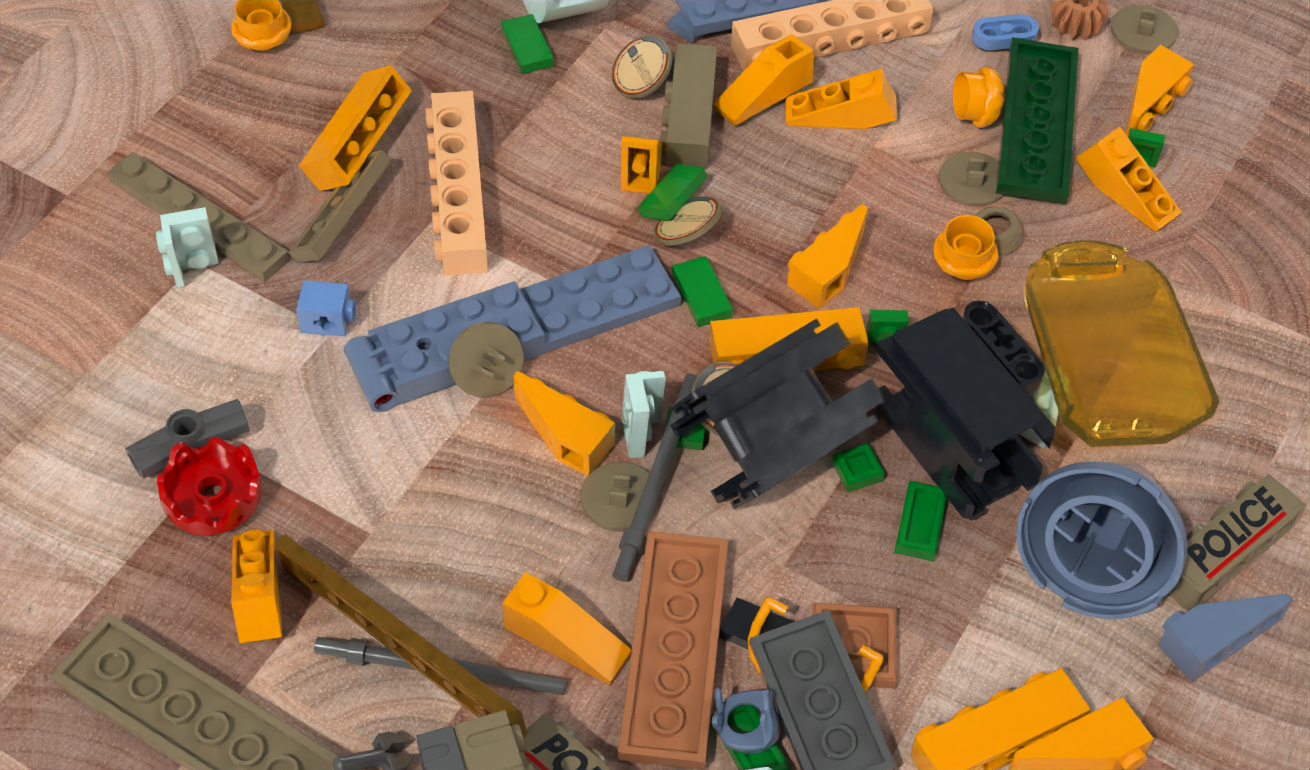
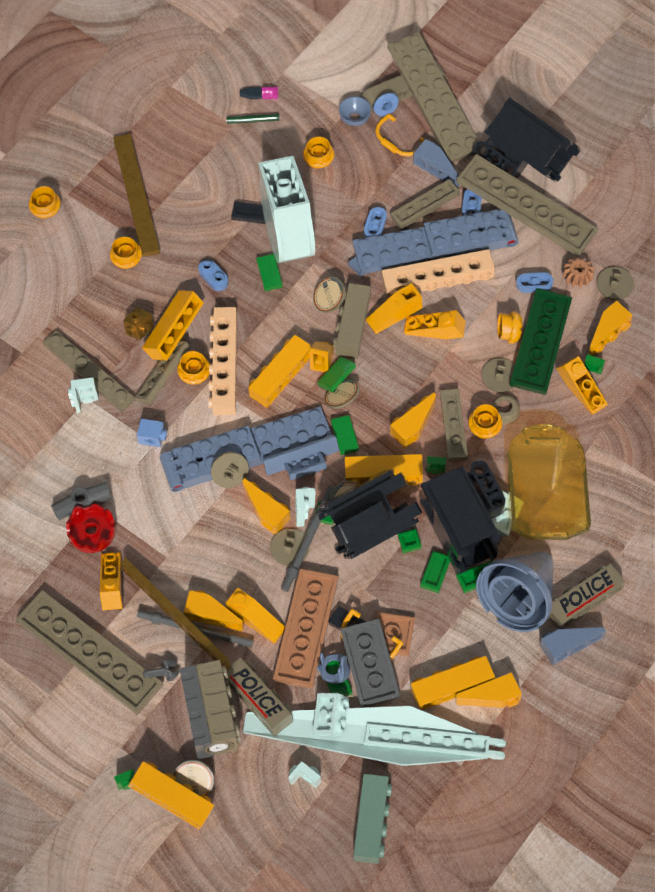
camera: 10 degrees right, 10 degrees up
(289, 129) = (138, 323): none -> pearl gold brick
(400, 193) = (193, 368): none -> light orange piece
(425, 53) = (213, 273): none -> medium blue plate
(470, 628) = (205, 609): none -> light orange slope
(565, 192) = (279, 371): none -> light orange brick
(625, 334) = (302, 459): none -> sand blue bracket
(906, 259) = (453, 425): none -> dark tan plate
(996, 526) = (469, 578): none -> green tile

